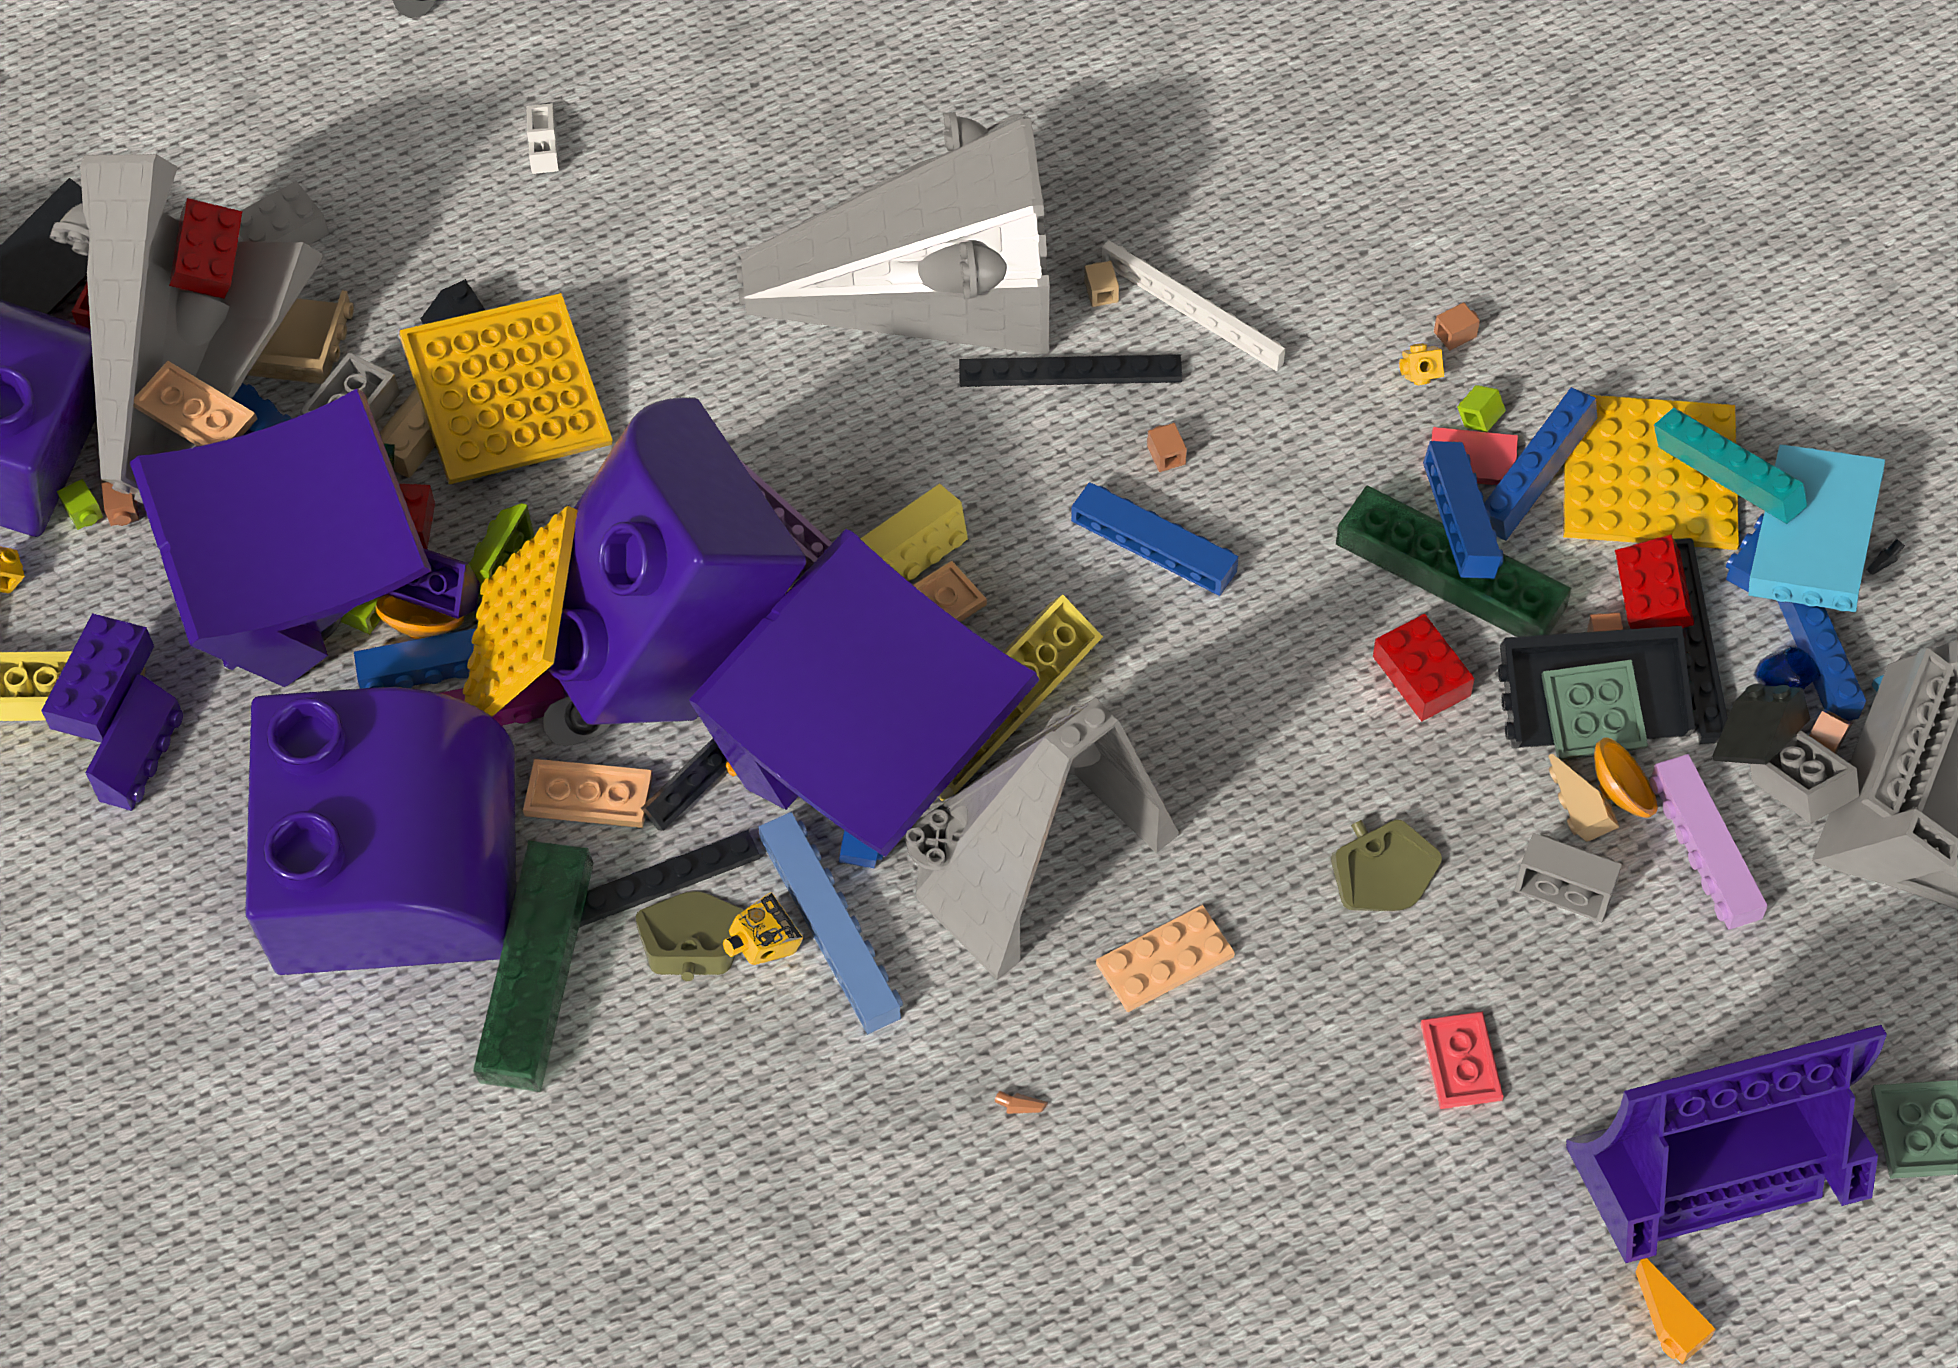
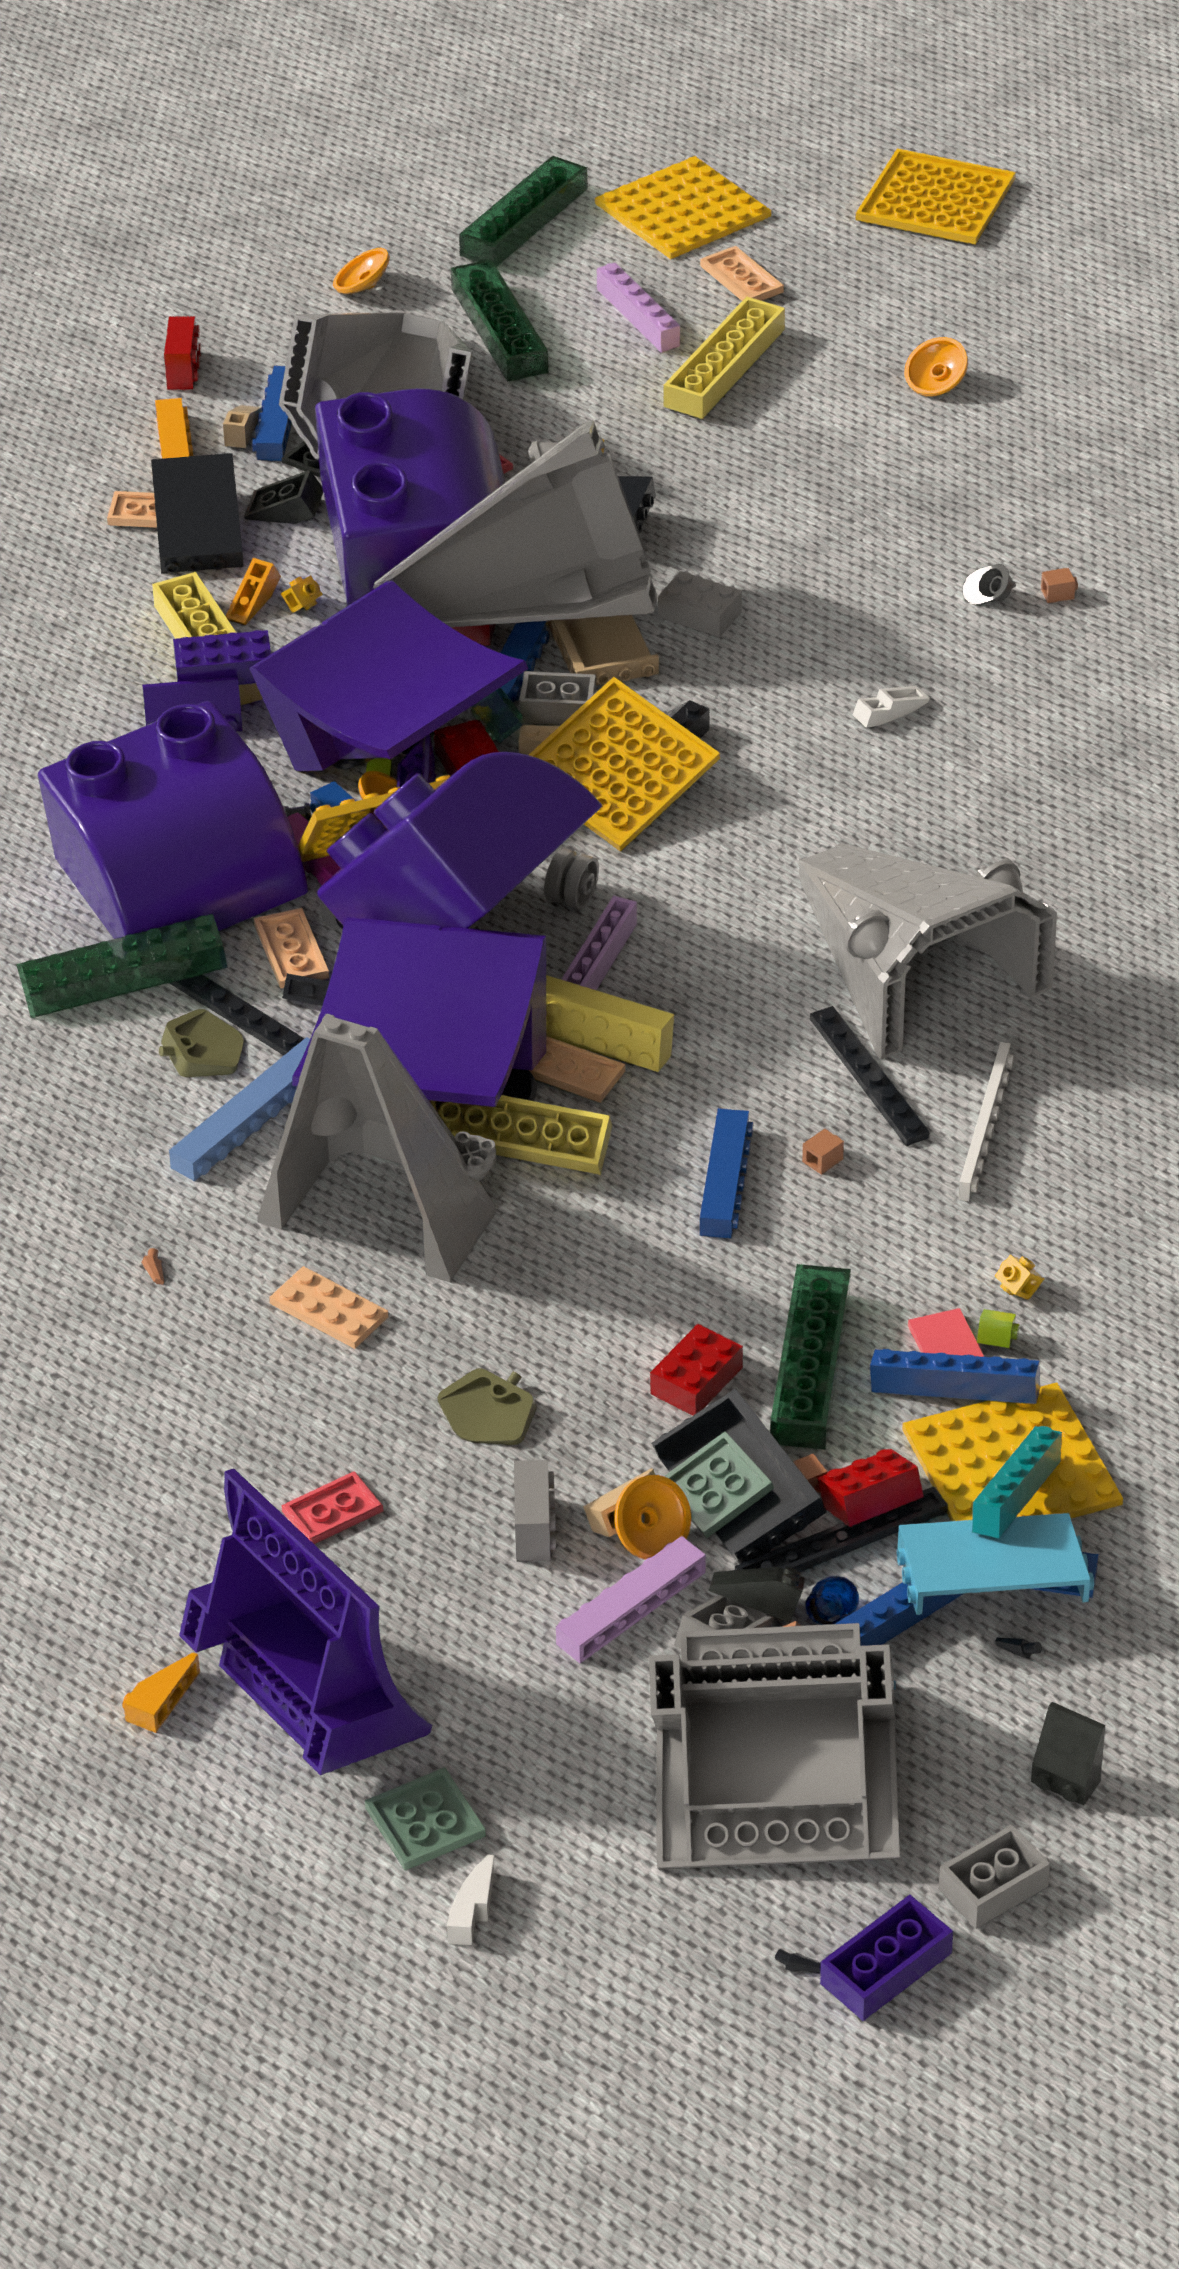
camera: 65 degrees right, 15 degrees down
(192, 407) = (471, 602): light nougat plate -> none
(205, 248) = (619, 554): red brick -> none
(763, 932) = (217, 1072): yellow torso -> none
(1101, 283) = (968, 1060): tan brick -> none
(1456, 326) = (1080, 1289): nougat brick -> none
(1462, 510) = (858, 1329): blue brick -> none

